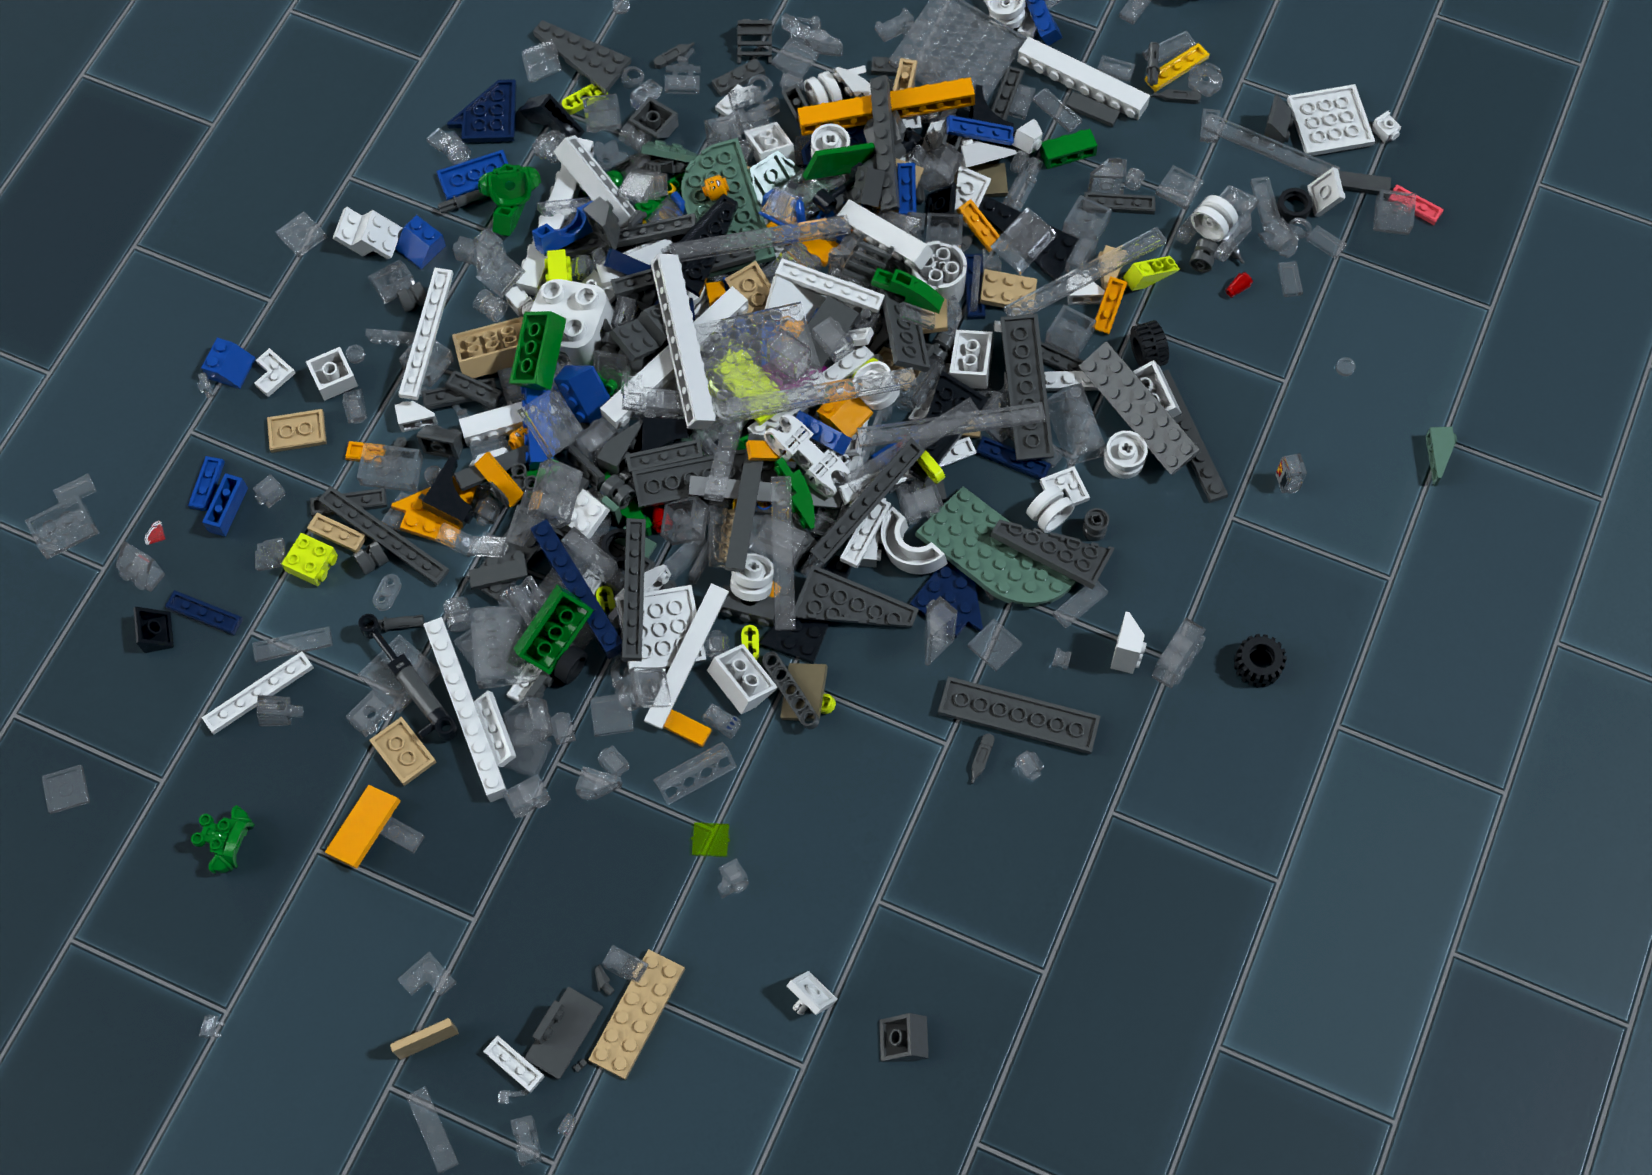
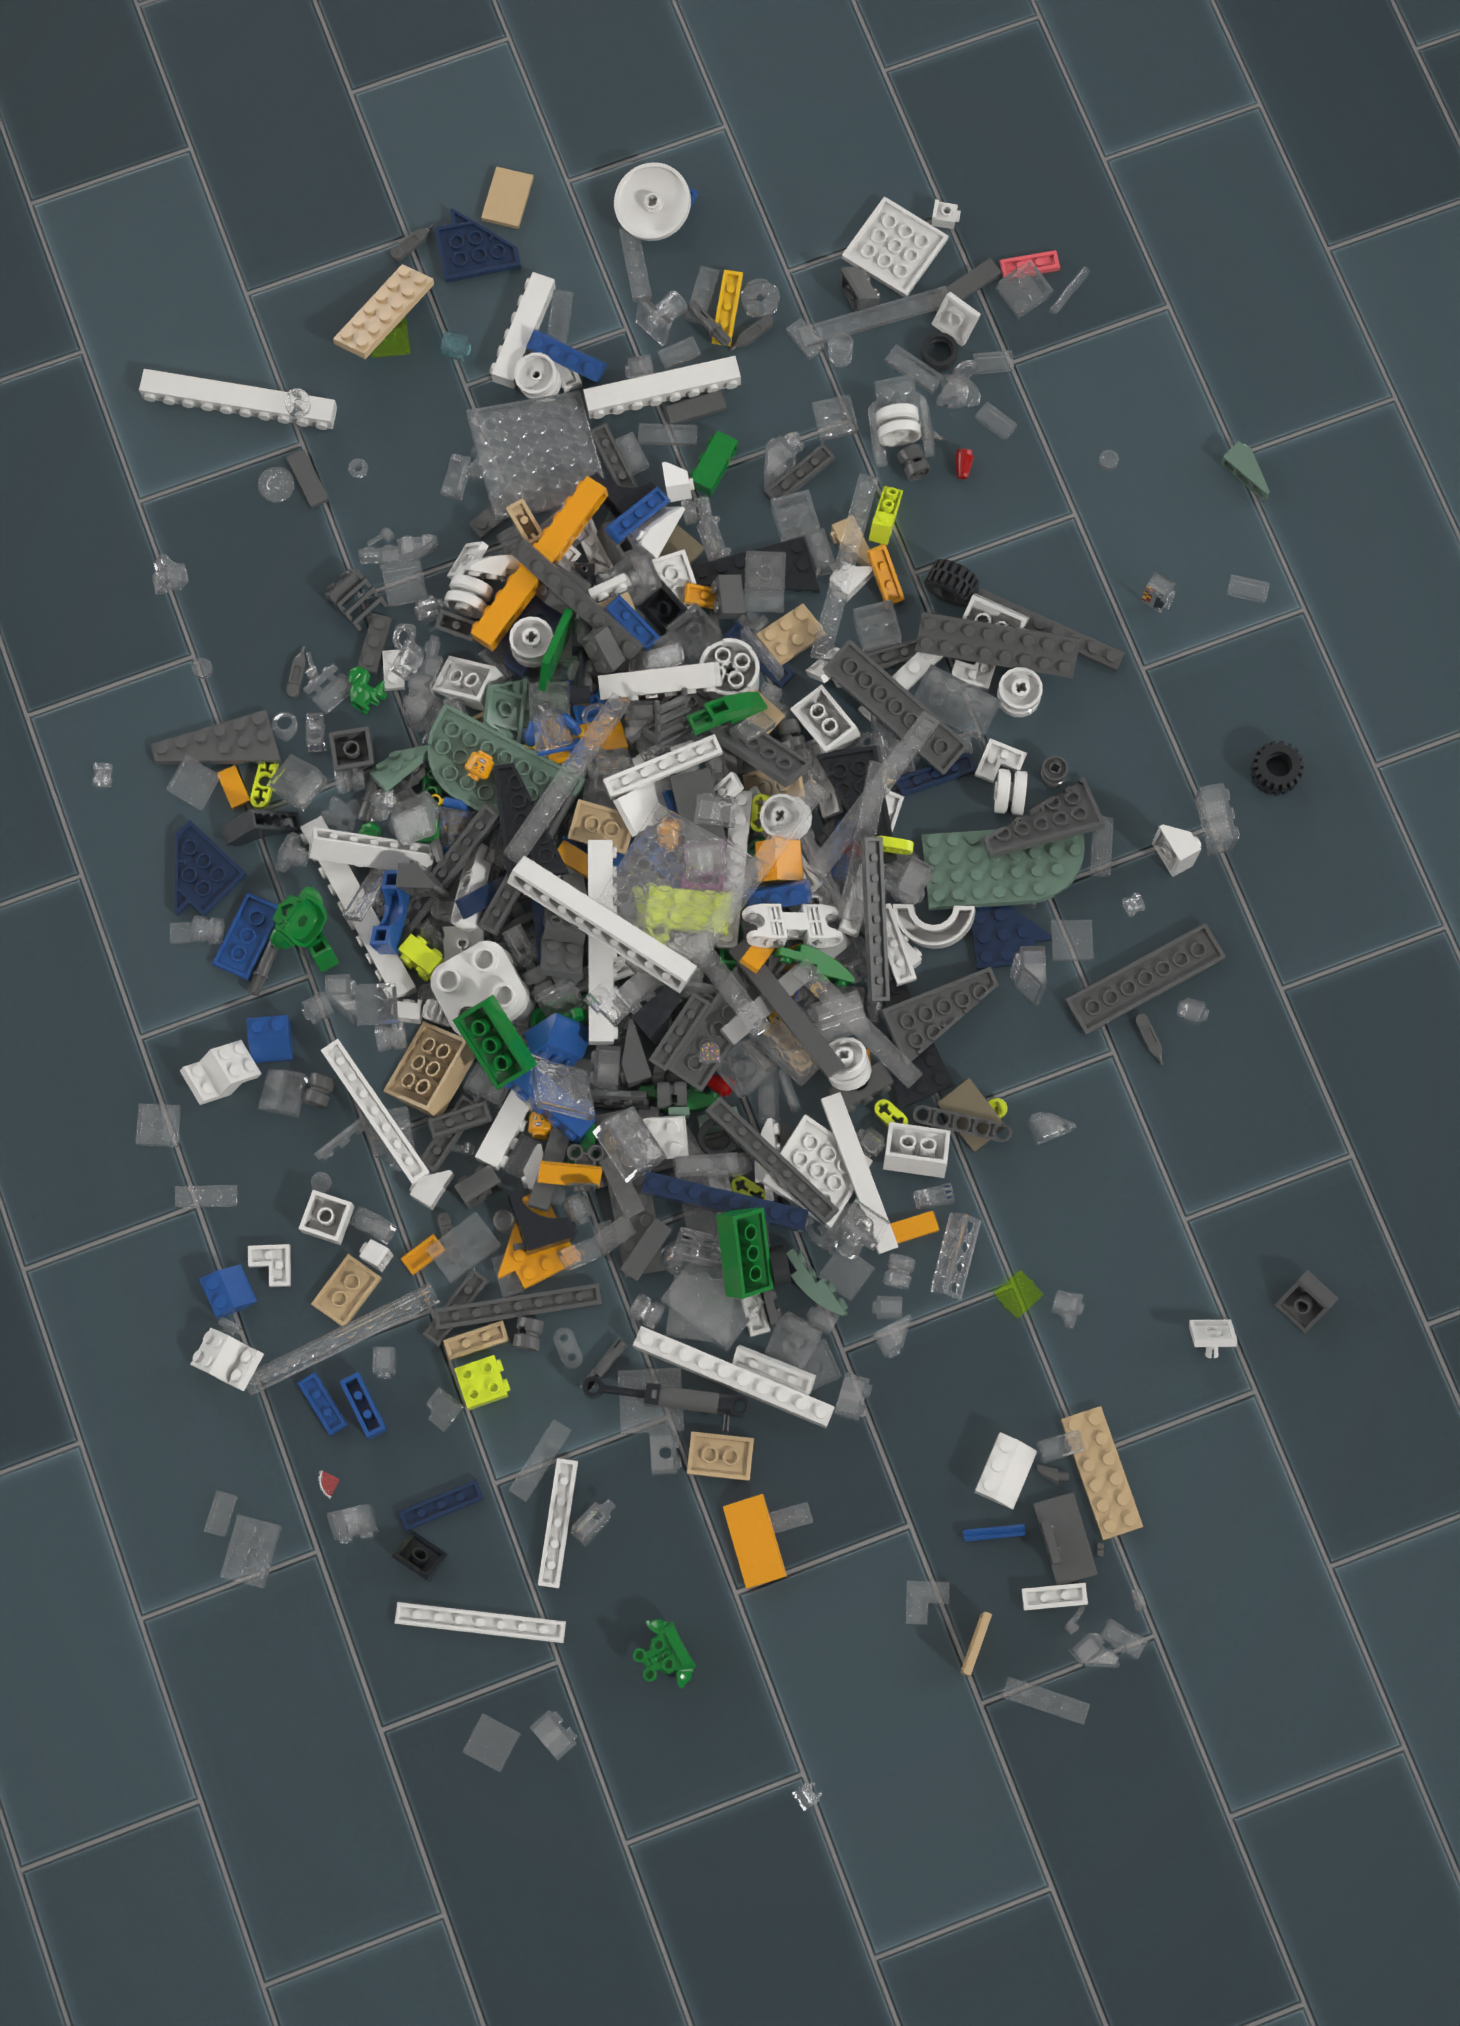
camera: 45 degrees left, 10 degrees up
(104, 822) = (554, 1734): none -> clear brick
(144, 708) = (480, 1622): none -> white tile
(179, 399) = (226, 1359): none -> white bracket
(259, 454) = (342, 1338): none -> clear plate
(281, 299) = (206, 1196): none -> clear tile
(335, 424) = (375, 1255): none -> white slope
(494, 12) = (102, 775): none -> clear wheel
(494, 1125) = (1091, 1653): none -> clear slope
(522, 980) = (994, 1532): none -> blue axle
(563, 84) = (234, 787): none -> light orange tile
(572, 945) = (1005, 1471): none -> white slope
(578, 704) = (819, 1291): none -> sand green slope
(644, 745) = (899, 1271): none -> clear wheel
(668, 486) = (709, 1053): none -> clear tile
(698, 95) = (363, 694): none -> green animal
(845, 747) = (1049, 1127): none -> clear slope
(914, 154) = (610, 588): none -> white plate
(989, 230) = (728, 596): none -> dark grey brick
(1081, 53) = (639, 366): none -> clear brick
(1107, 421) = (976, 675): none -> white plate
(1123, 34) = (658, 319): none -> clear plant
(1226, 148) = (840, 349): none -> clear wheel
(1362, 529) = (1248, 588): none -> clear tile
(1426, 242) = (1069, 290): none -> clear bar

